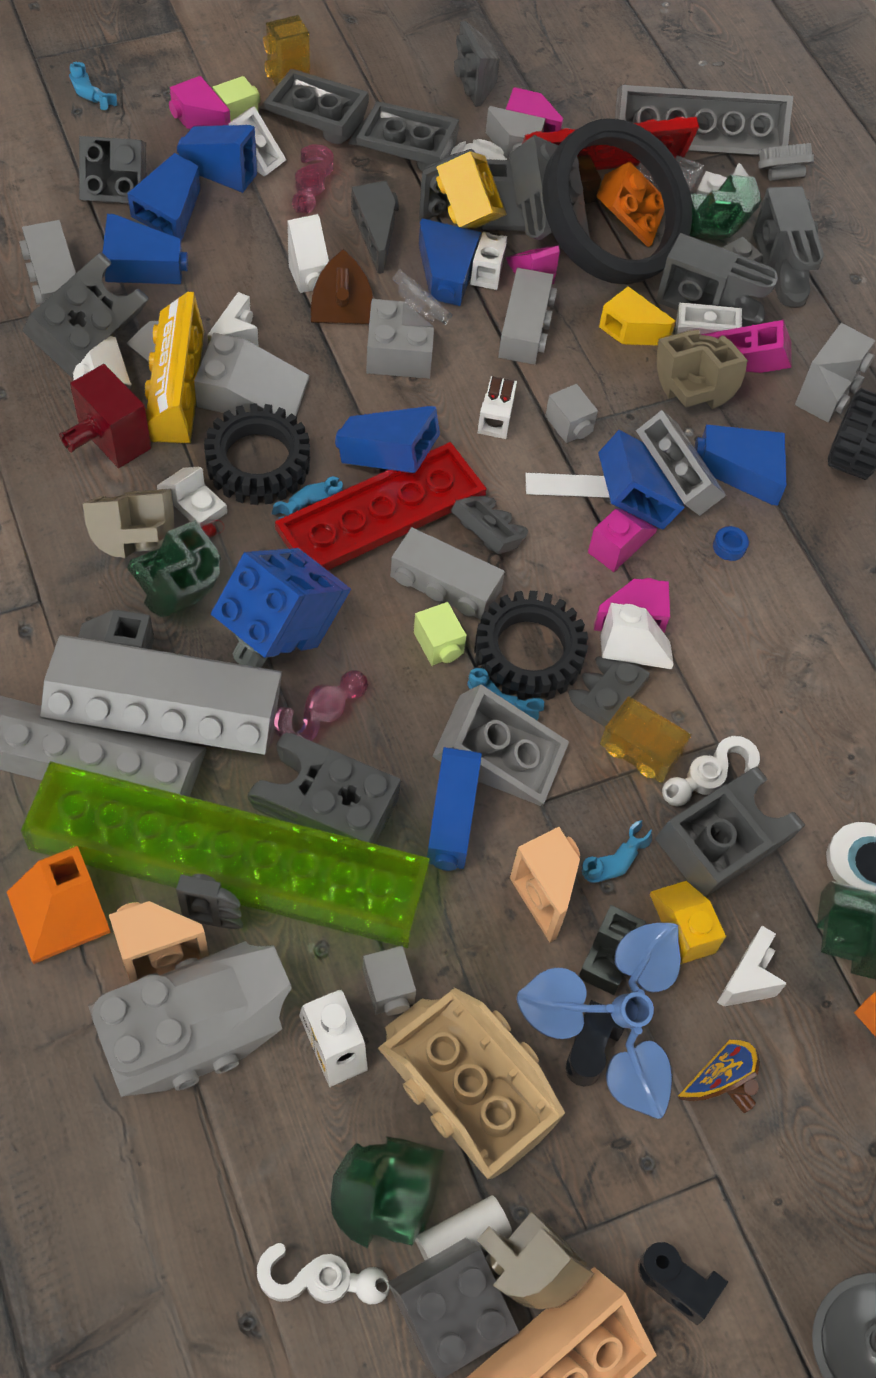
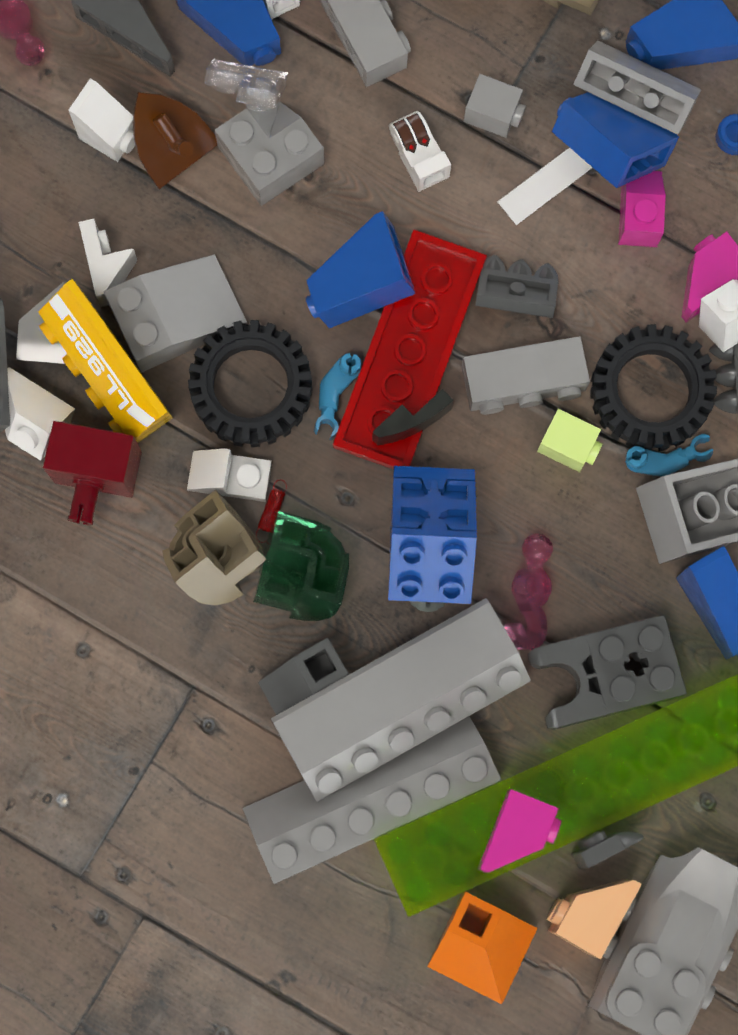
camera: 35 degrees left, 20 degrees up
(149, 826) = (519, 830): none -> dark pink slope
(327, 535) = (403, 424): none -> pearl dark grey slope

